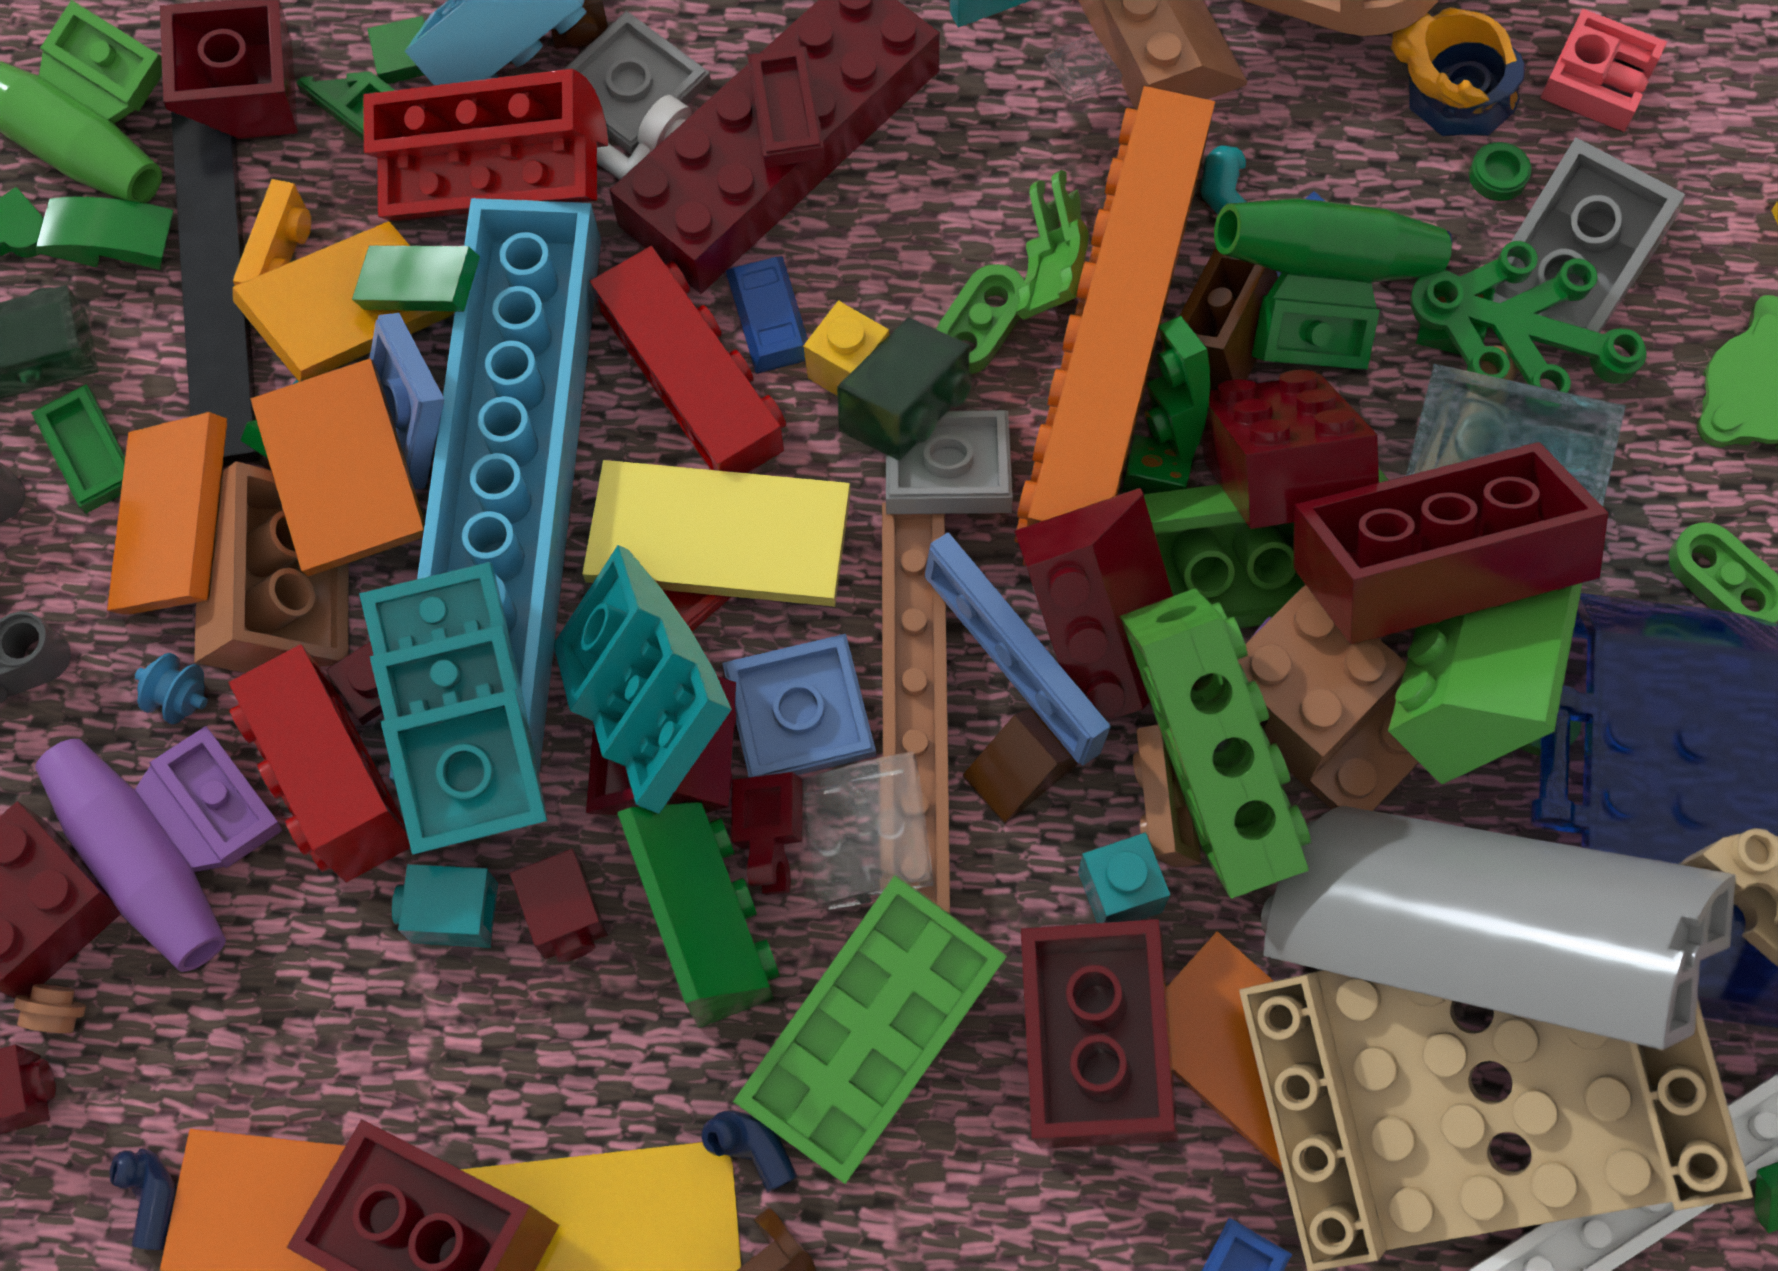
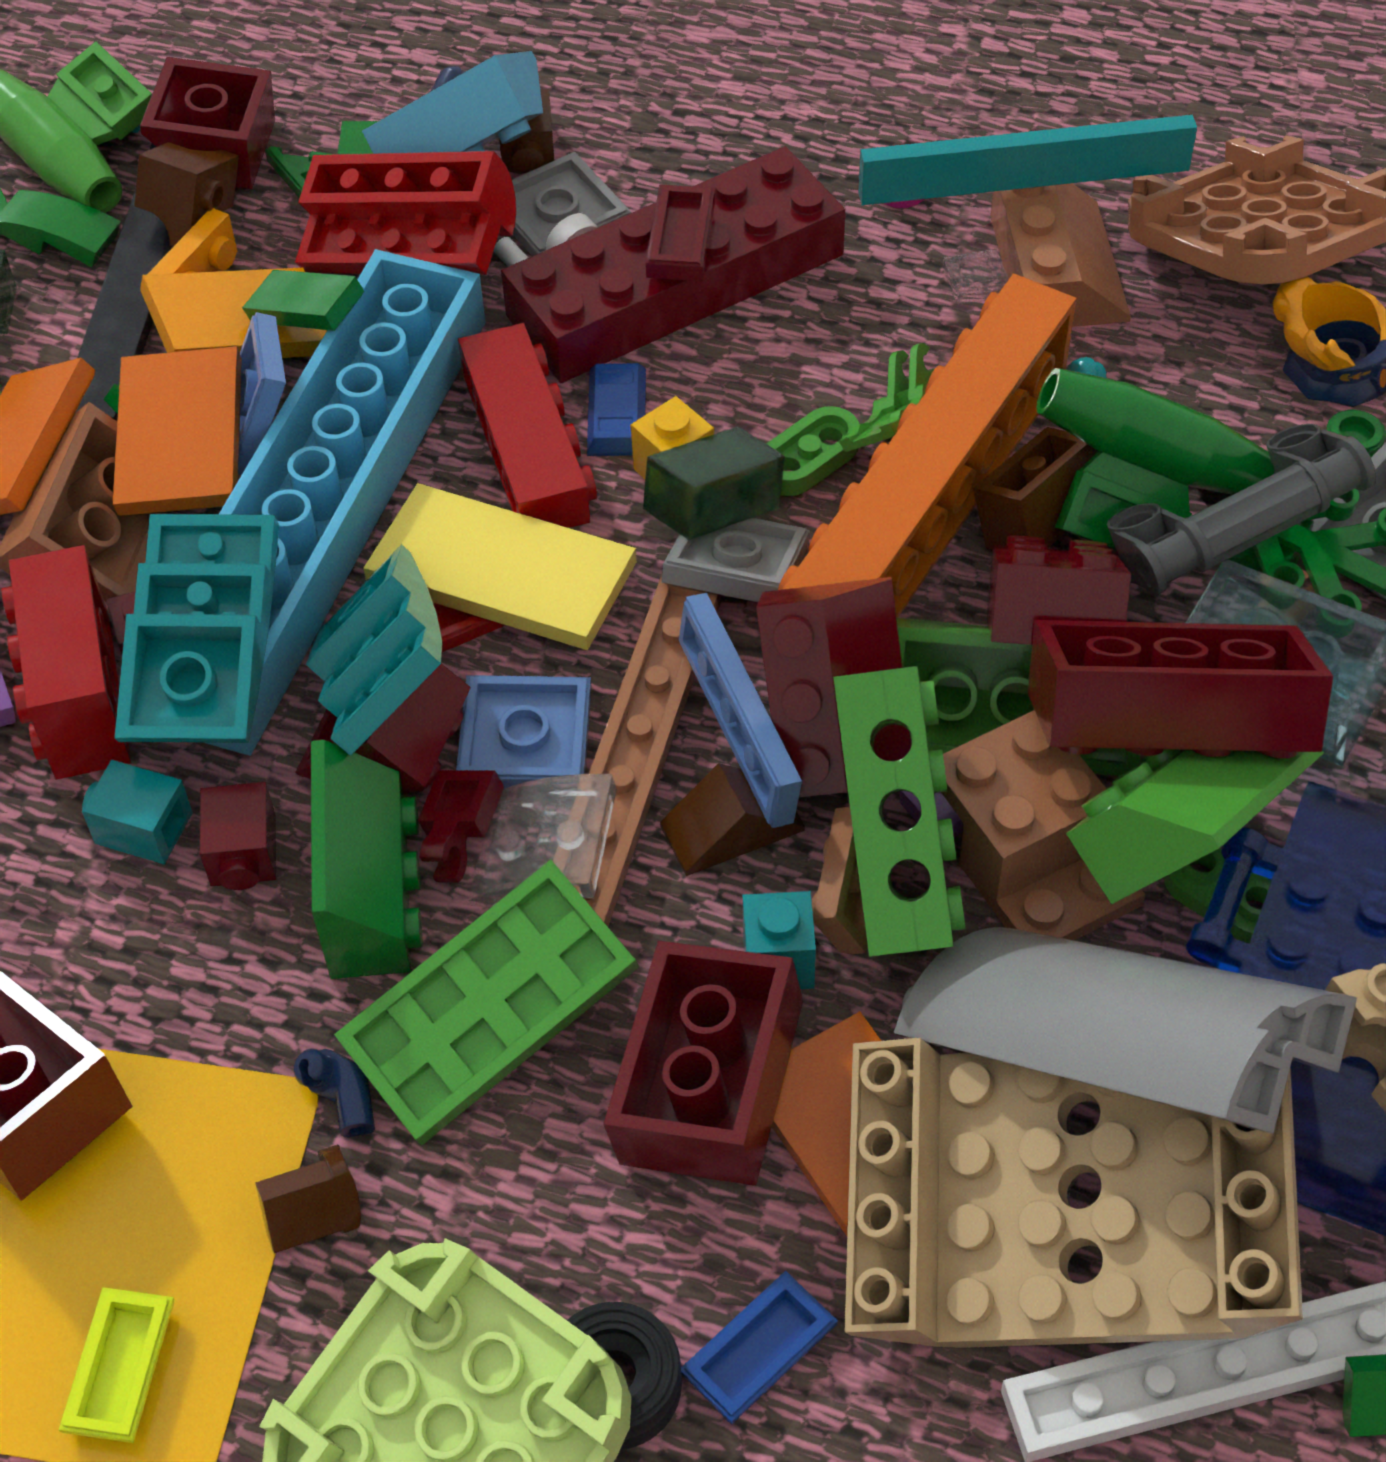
camera: 15 degrees right, 15 degrees down
(234, 160) = (184, 185): none -> reddish brown brick
(1155, 468) = (937, 603): green slope -> none
(1182, 392) = (973, 539): green slope -> none
(1497, 255) = (1309, 473): none -> dark grey piece

